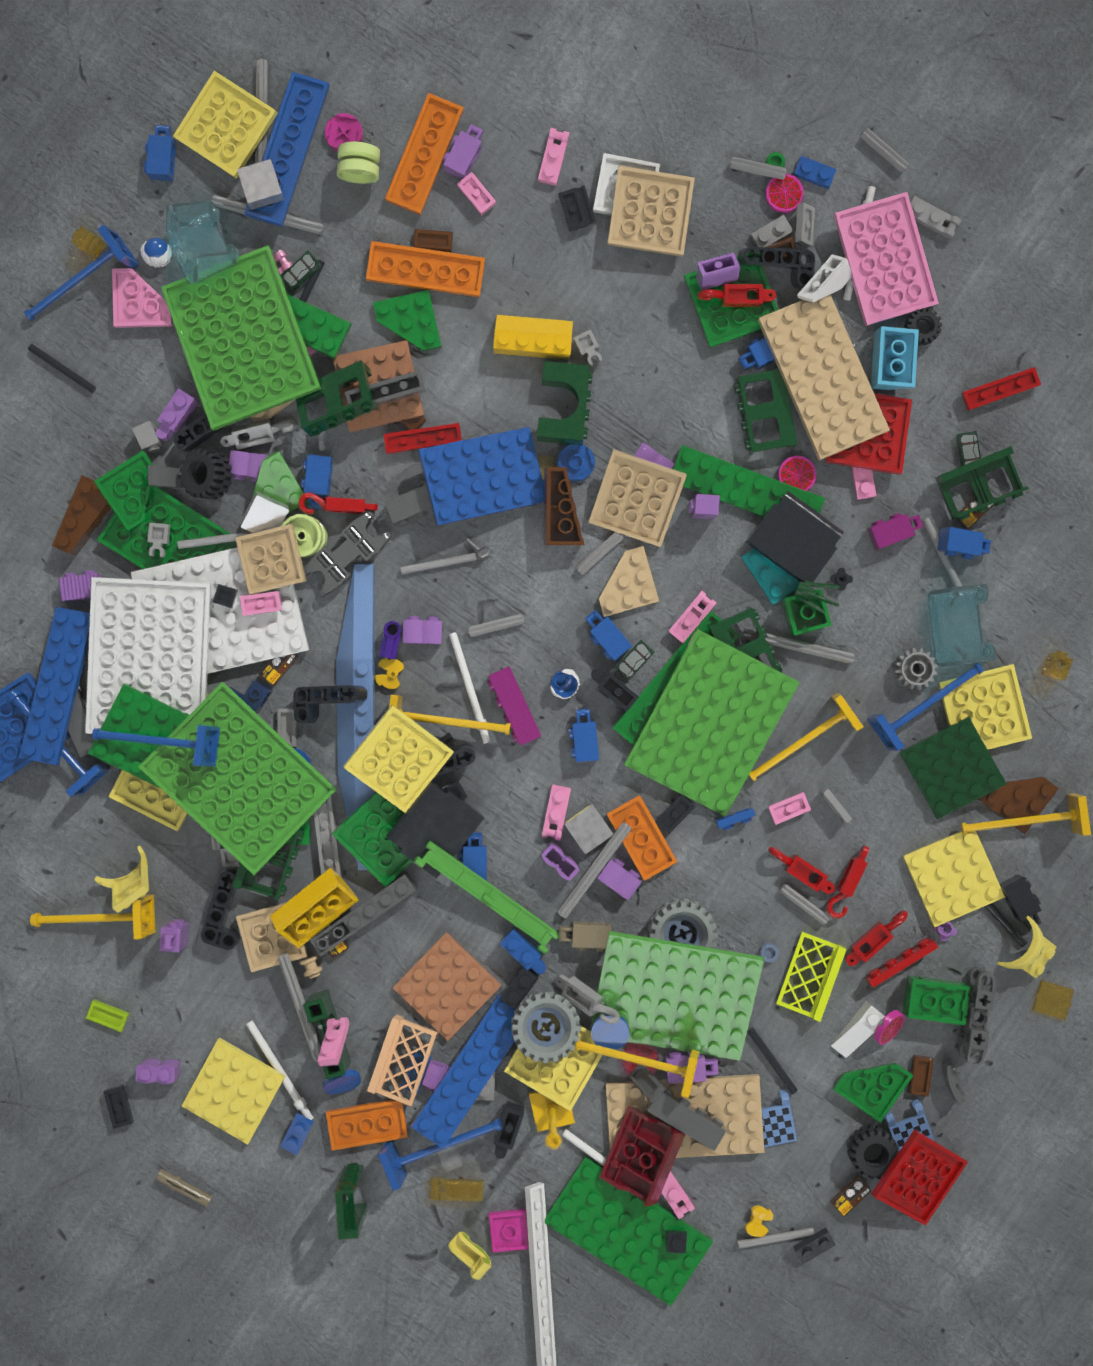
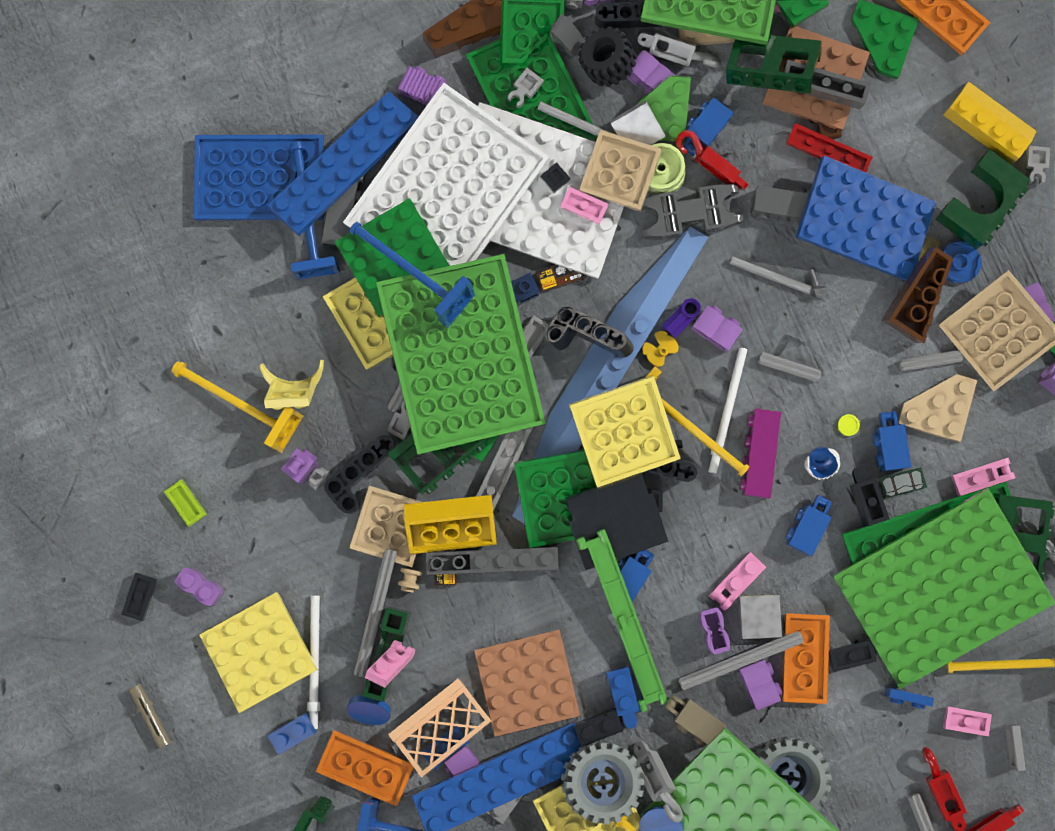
camera: 25 degrees right, 5 degrees down
(194, 935) = (318, 477): none -> light grey plate
(567, 641) = (848, 425): none -> neon yellow piece

